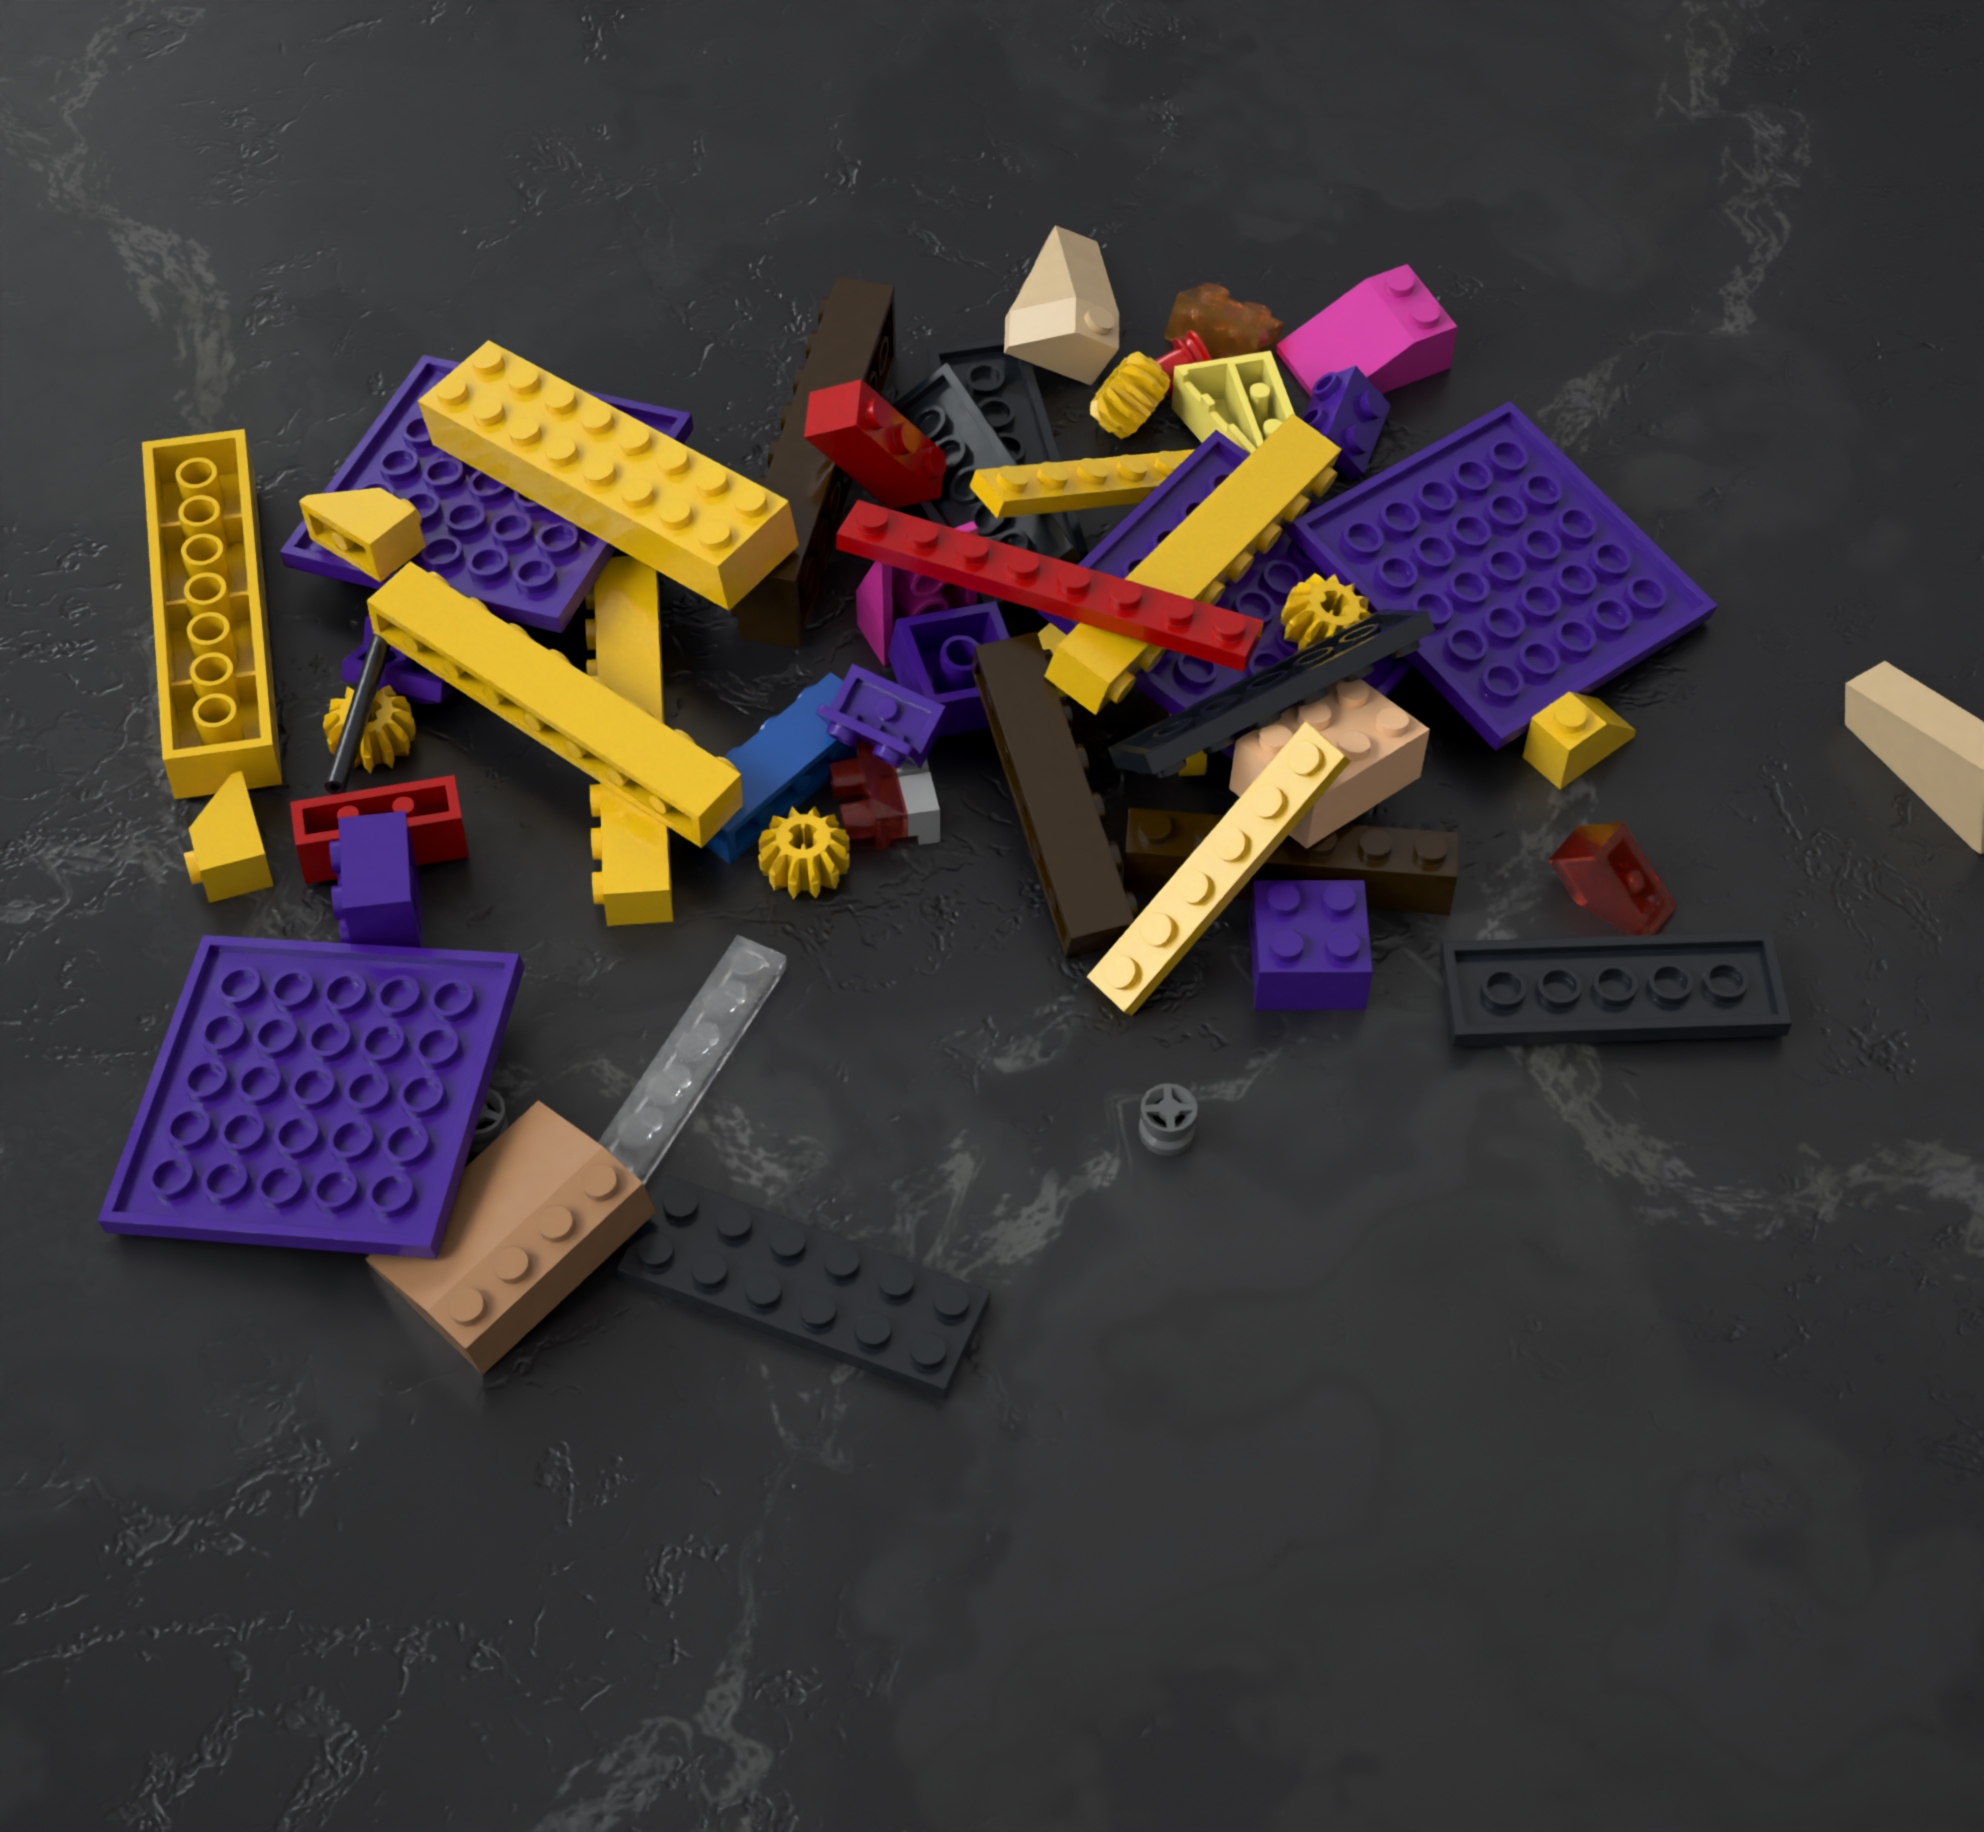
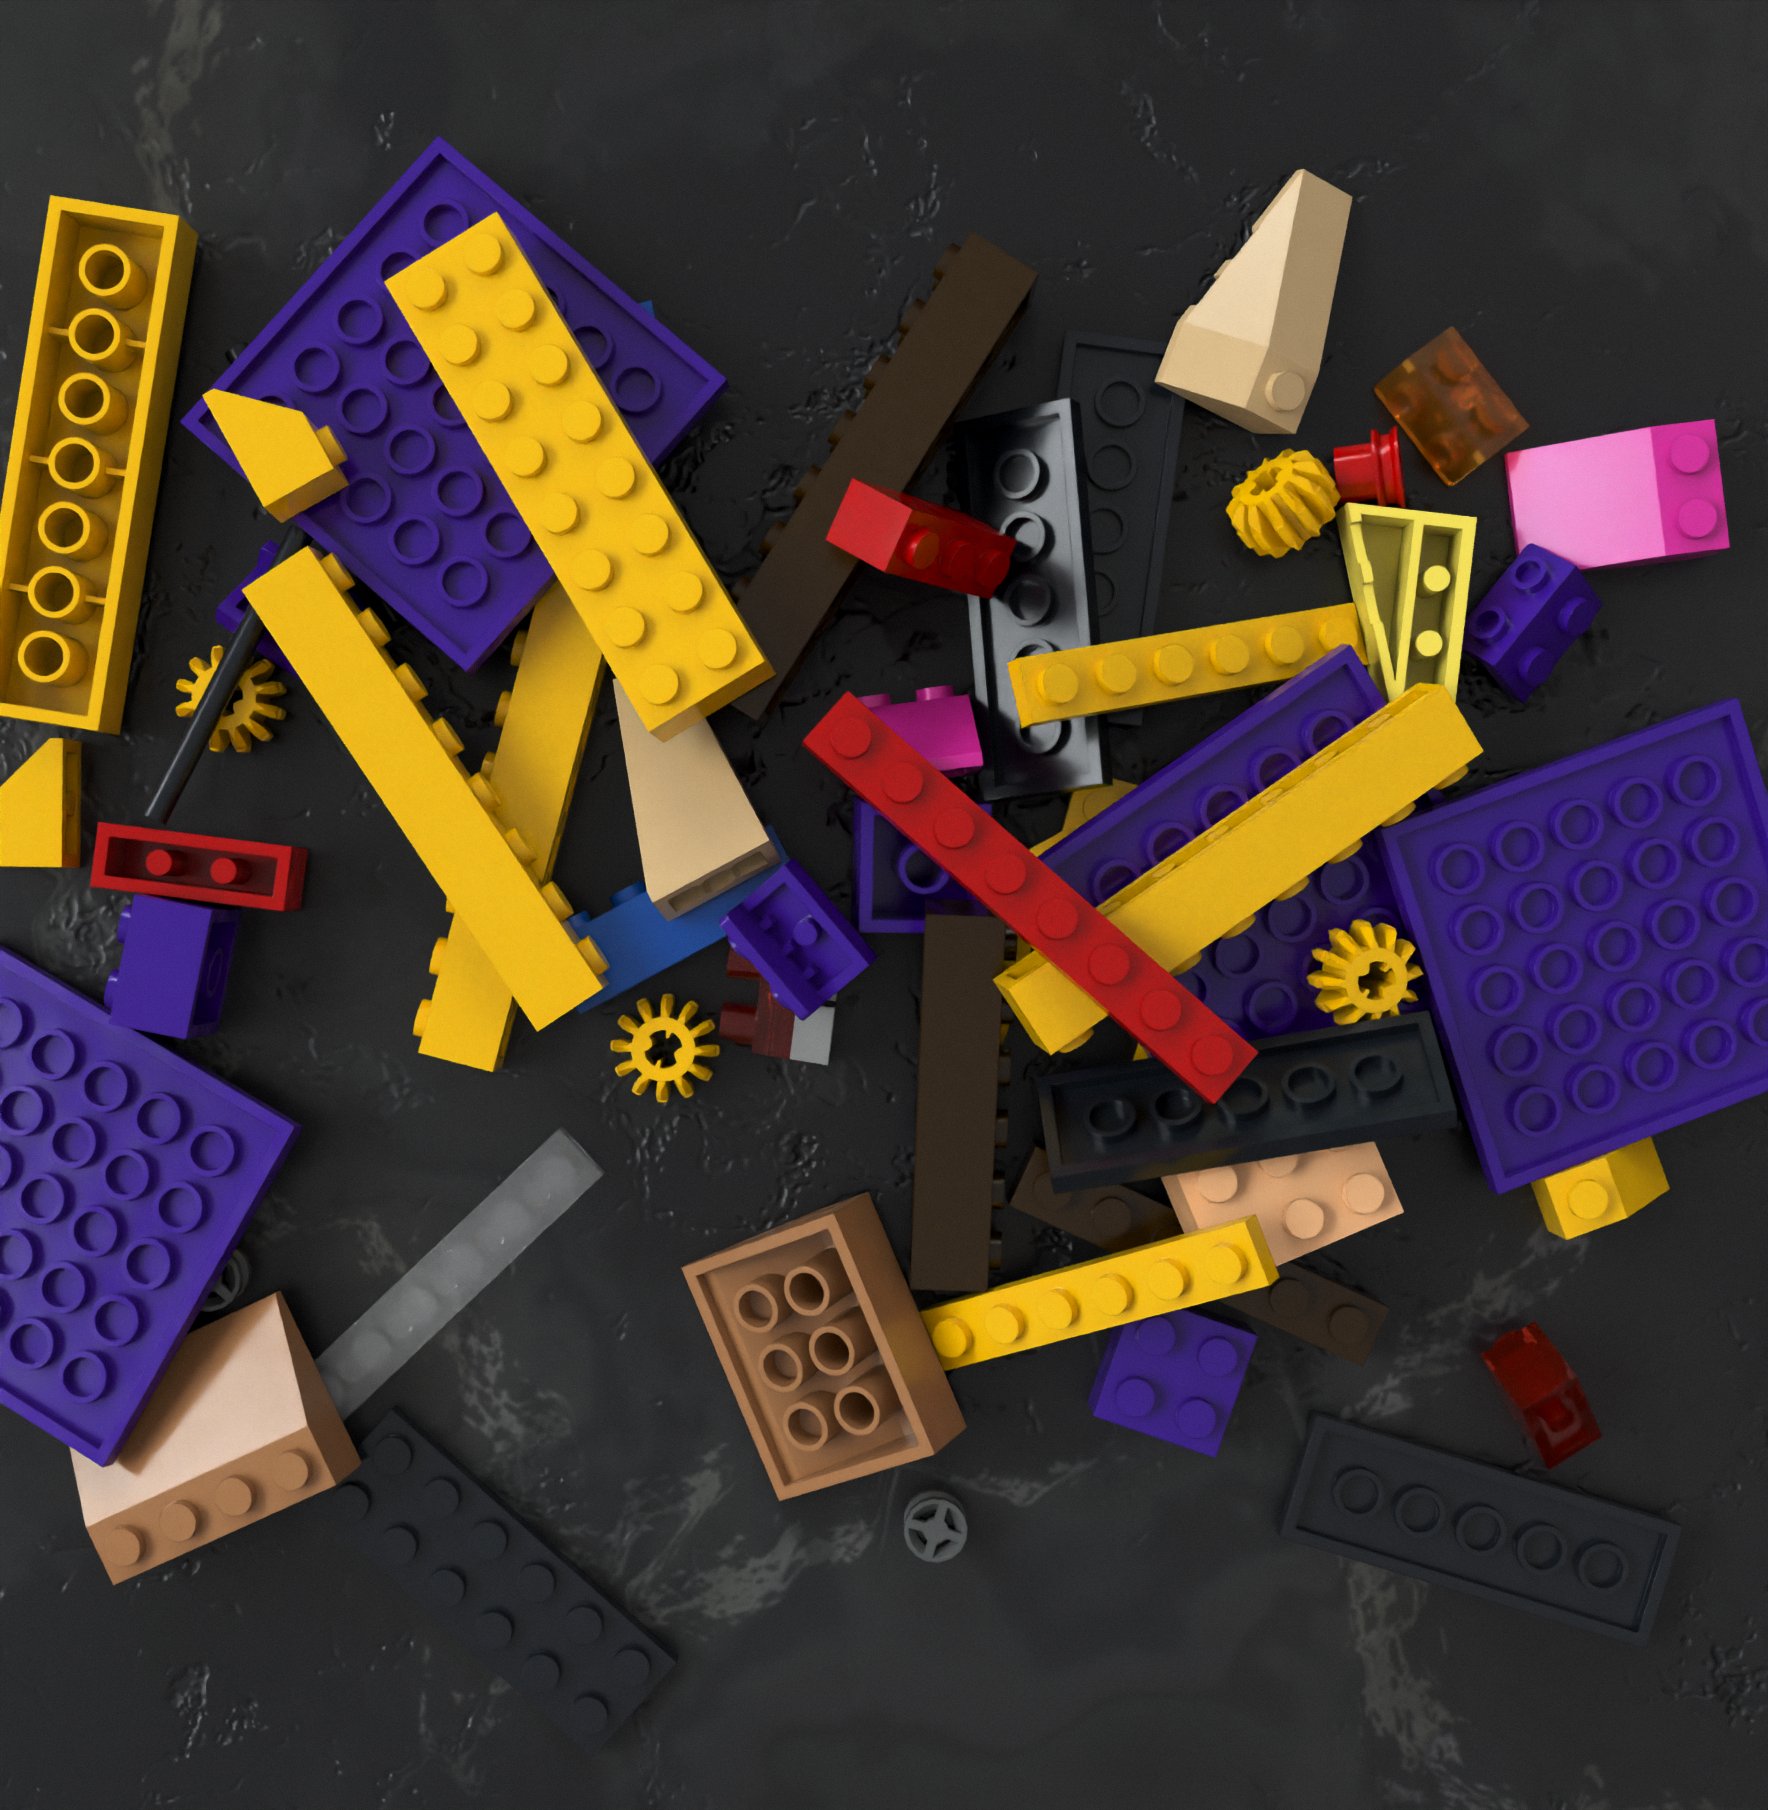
camera: 20 degrees right, 35 degrees up
(760, 665) = (689, 814): none -> tan slope
(1017, 1020) = (825, 1349): none -> medium nougat slope

